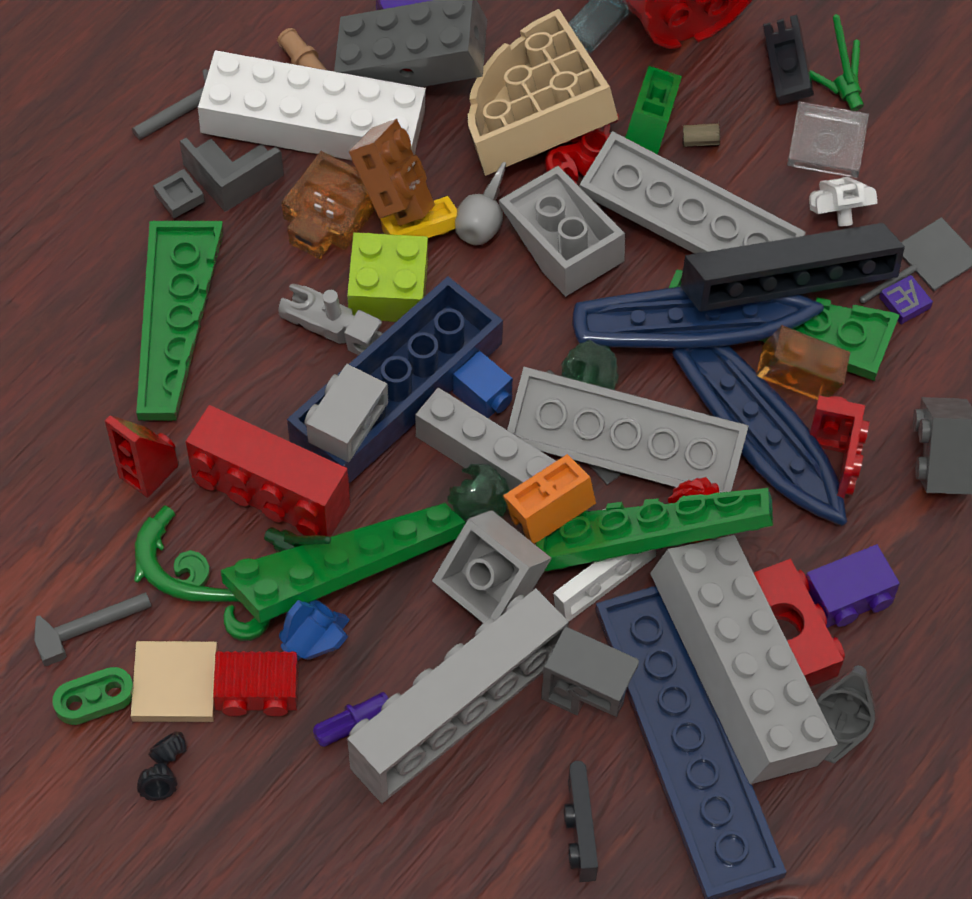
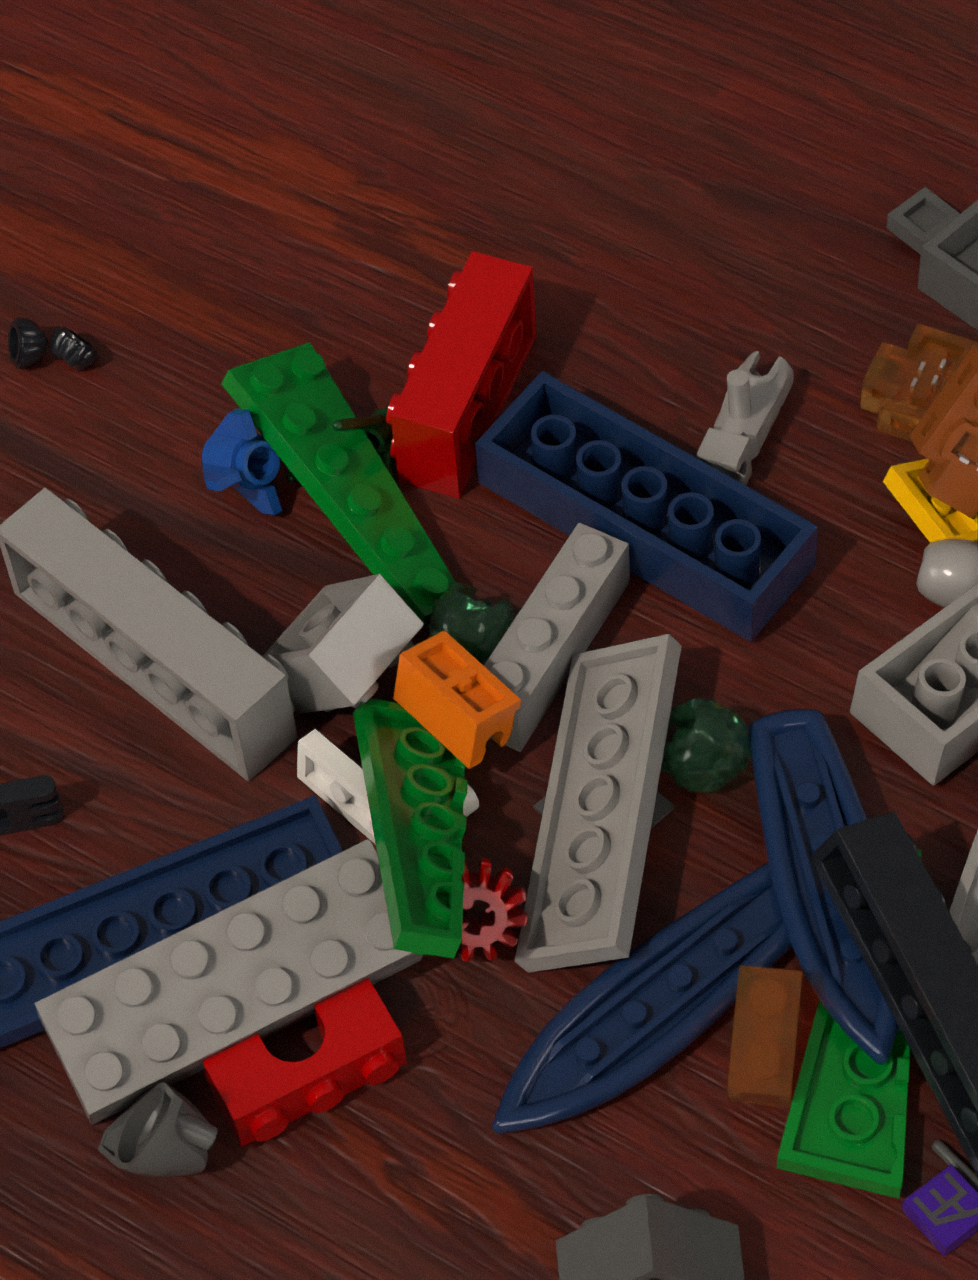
camera: 90 degrees right, 5 degrees down
(50, 639) = (222, 209): dark grey piece -> none
(92, 693) = (147, 268): green plate -> none
(140, 454) = (470, 212): red slope -> none
(173, 681) = (170, 343): tan tile -> none
(176, 291) = (764, 245): green wing -> none
(194, 587) = (331, 288): green plant -> none
(255, 682) = (166, 421): red brick -> none
(342, 723) = (108, 515): dark purple axle -> none
(346, 412) = (545, 422): light grey brick -> none
(387, 274) = (830, 472): lime brick -> none
(483, 385) = (665, 607): blue brick -> none
(588, 673) = (172, 761): dark grey panel -> none
(841, 428) = (610, 1110): red bracket -> none
(853, 586) = (378, 1141): dark purple brick -> none

